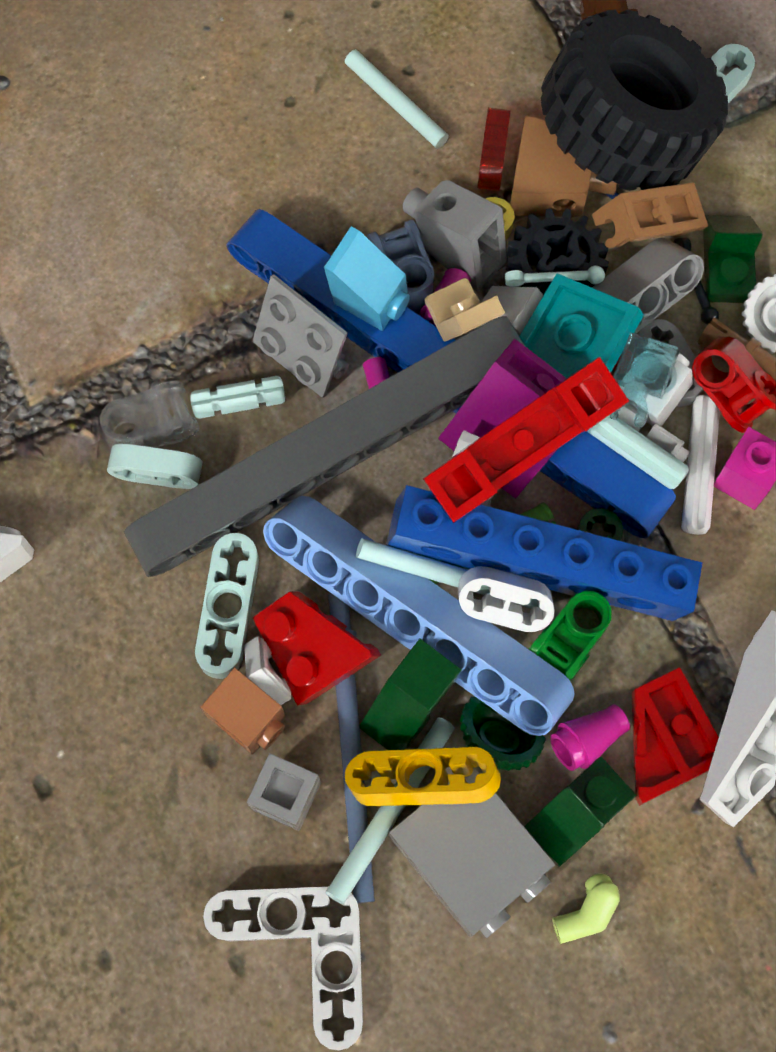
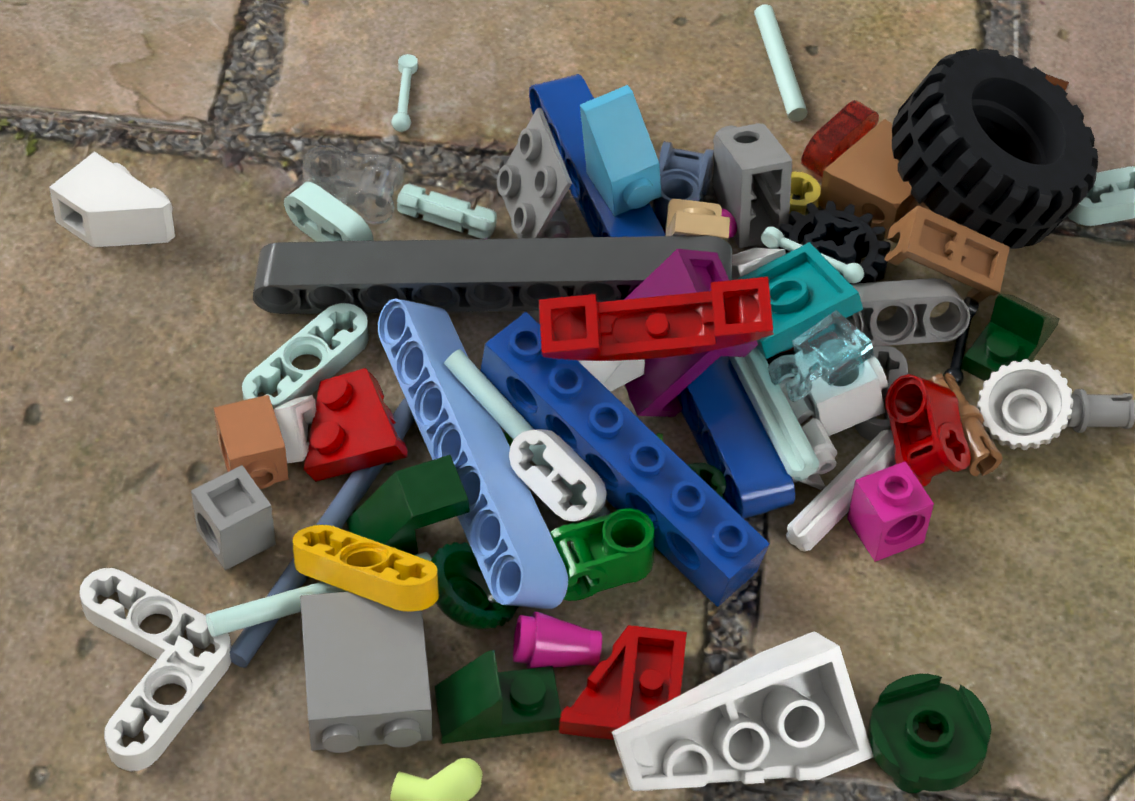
camera: 30 degrees right, 20 degrees down
(106, 273) = (407, 66): none -> light aqua hinge

